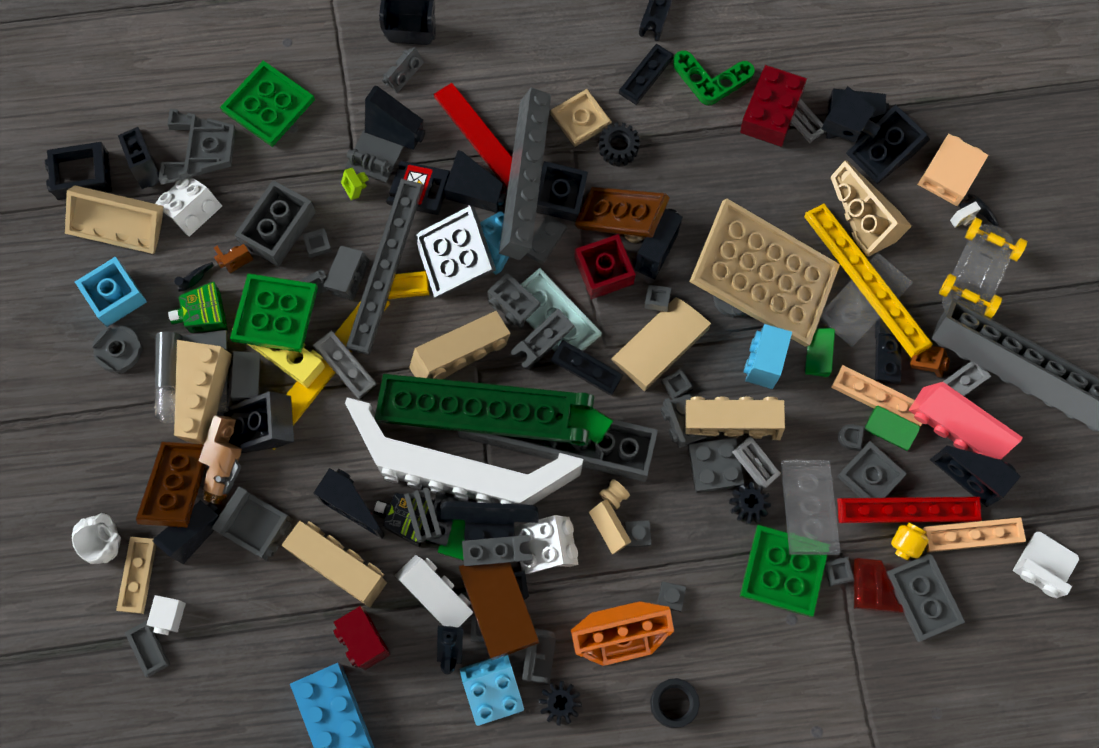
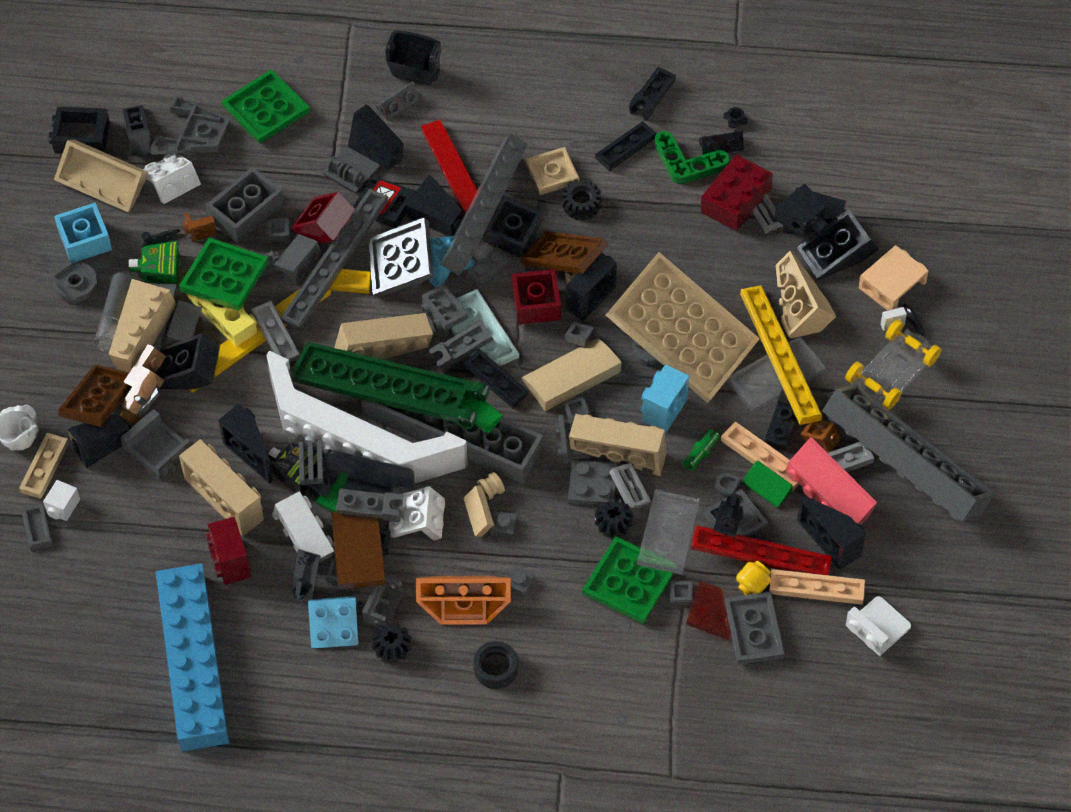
camera: 15 degrees right, 15 degrees down
(353, 182) = (325, 185): lime tile -> none
(362, 223) = (324, 218): none -> dark red brick
(744, 51) = (726, 142): none -> black hinge
(747, 15) = (732, 113): none -> black plate
(815, 403) = (701, 449): none -> green pin
(820, 353) = (719, 409): green slope -> none
(870, 481) = (729, 516): none -> black hinge

